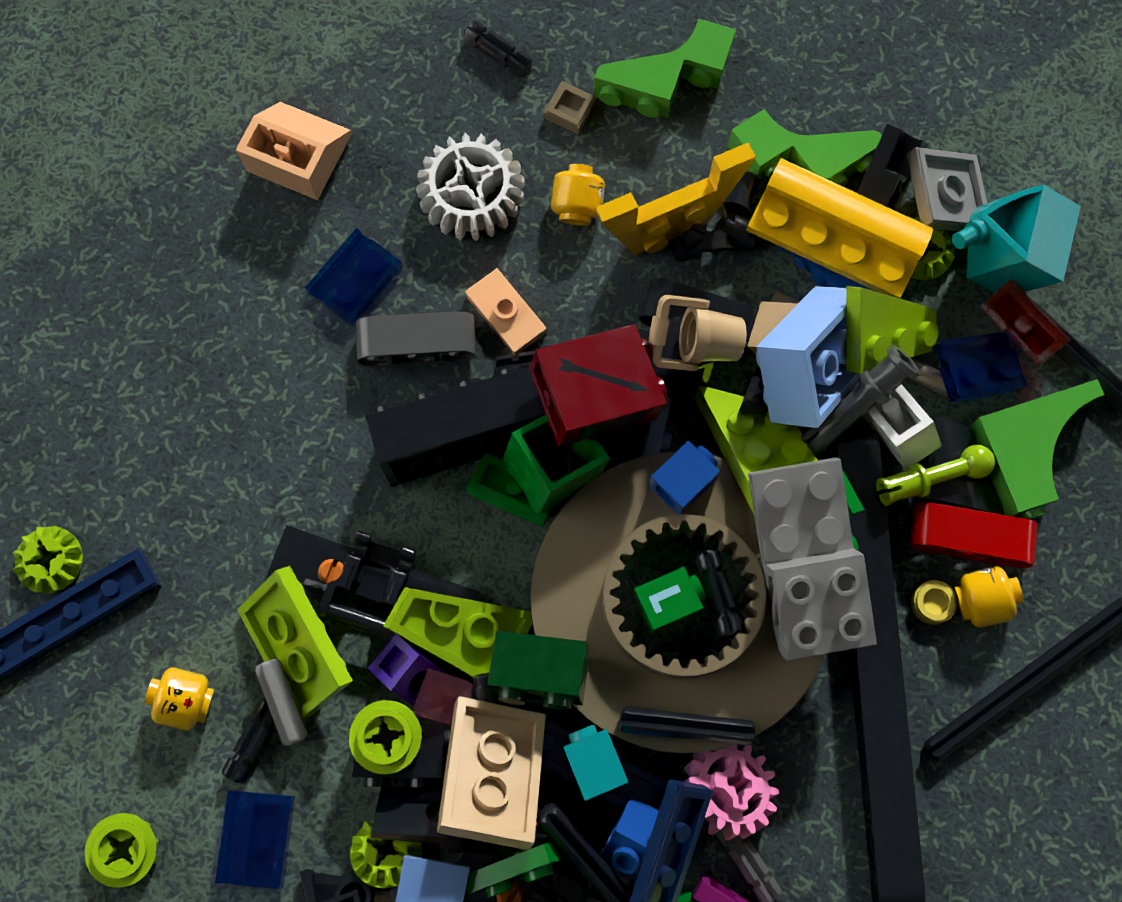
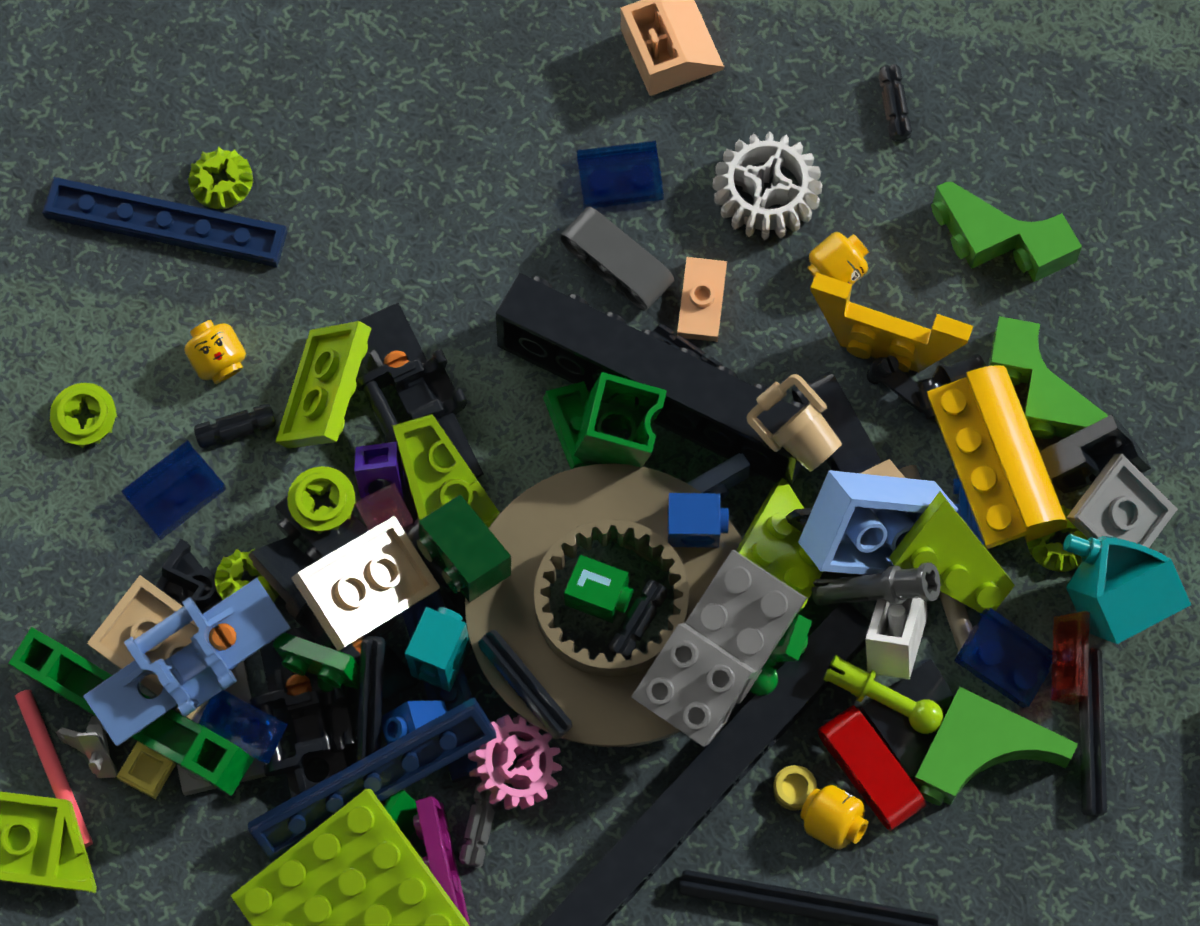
camera: 45 degrees right, 5 degrees down
(281, 701) = (278, 416): light grey axle -> none
(570, 107) = (904, 194): dark tan tile -> none
(597, 384) = (693, 394): dark red brick -> none

